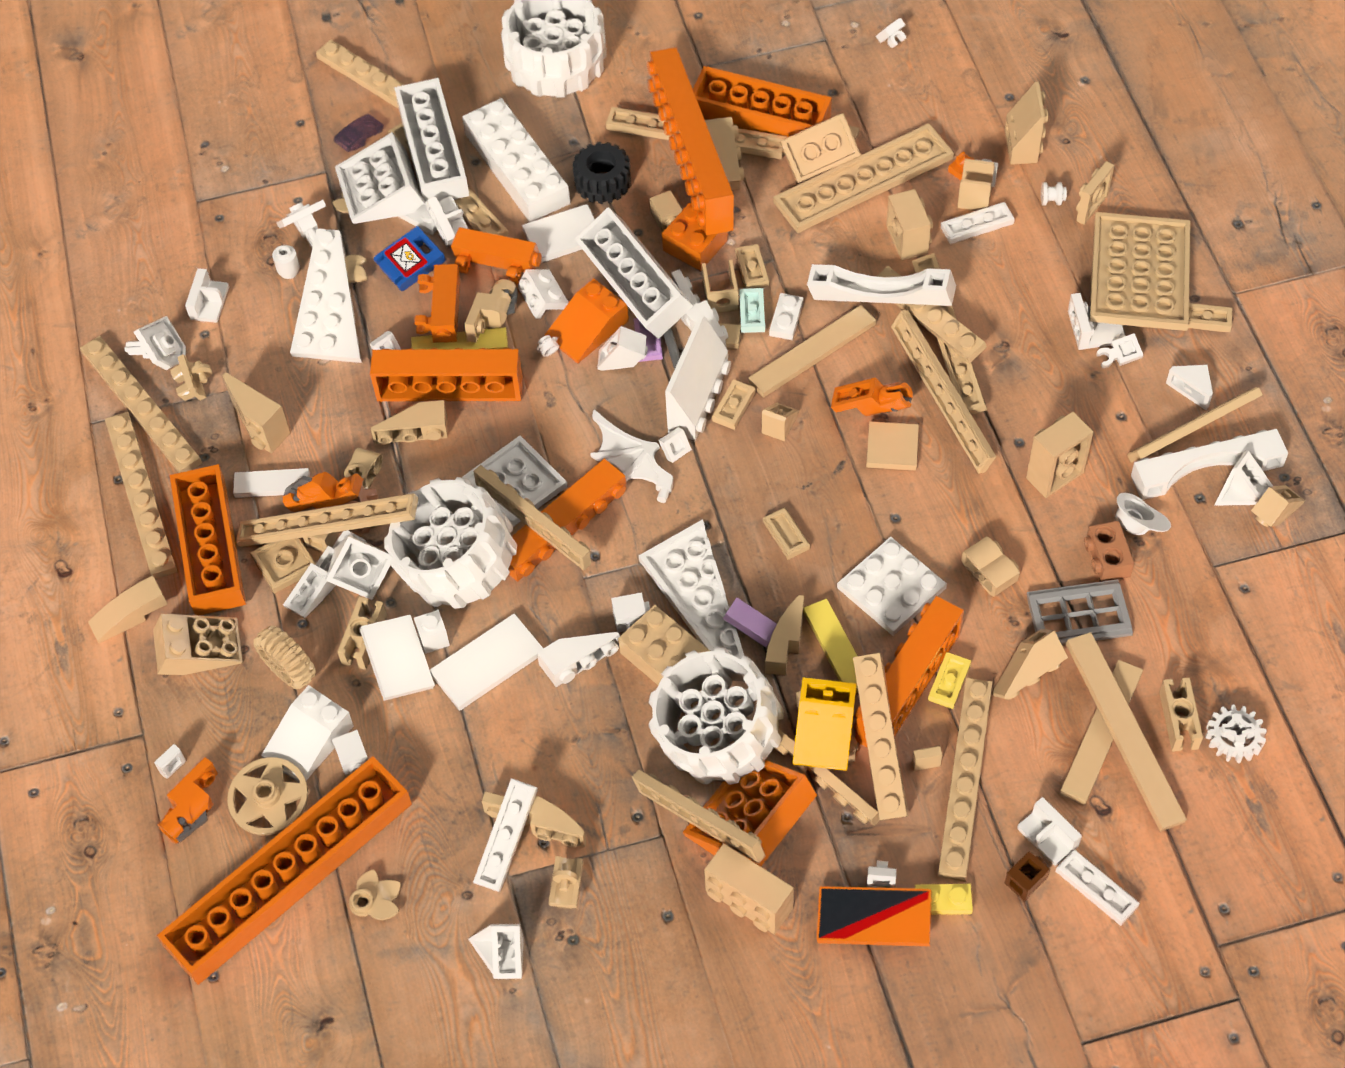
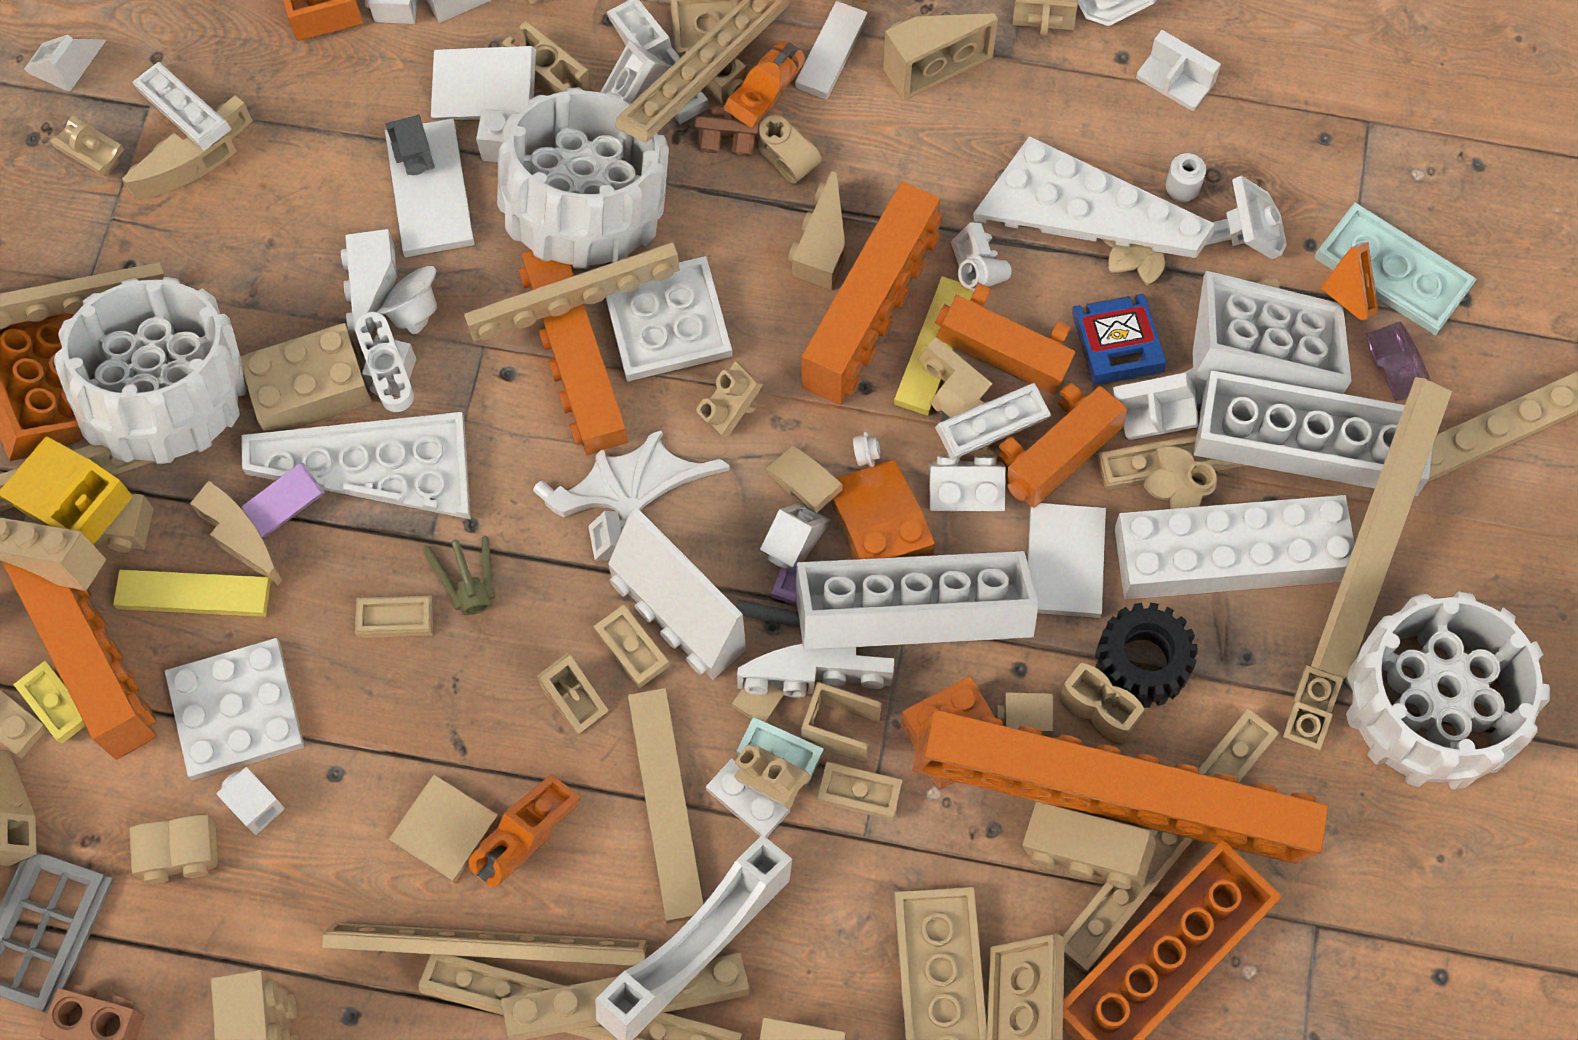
camera: 115 degrees right, 10 degrees up
(296, 156) = (1404, 271): none -> light aqua tile
(319, 164) = (1353, 282): none -> orange slope
(403, 332) = (984, 271): none -> white cone
(467, 672) = (410, 144): none -> dark grey brick
(476, 88) = (1381, 527): none -> tan tile
(488, 195) = (1175, 478): none -> tan plate
(502, 281) = (993, 421): none -> white tile
(553, 418) = (731, 399): none -> tan hips
(574, 619) = (411, 300): none -> white piece
(582, 367) = (804, 478): none -> tan slope
(586, 105) = (1312, 708): none -> tan slope
(632, 611) = (372, 352): none -> white beam
(641, 179) = (1094, 698): none -> tan brick
(749, 496) = (472, 595): none -> olive plant
(772, 294) = (770, 775): none -> tan hips
(939, 542) = (249, 800): none -> white brick

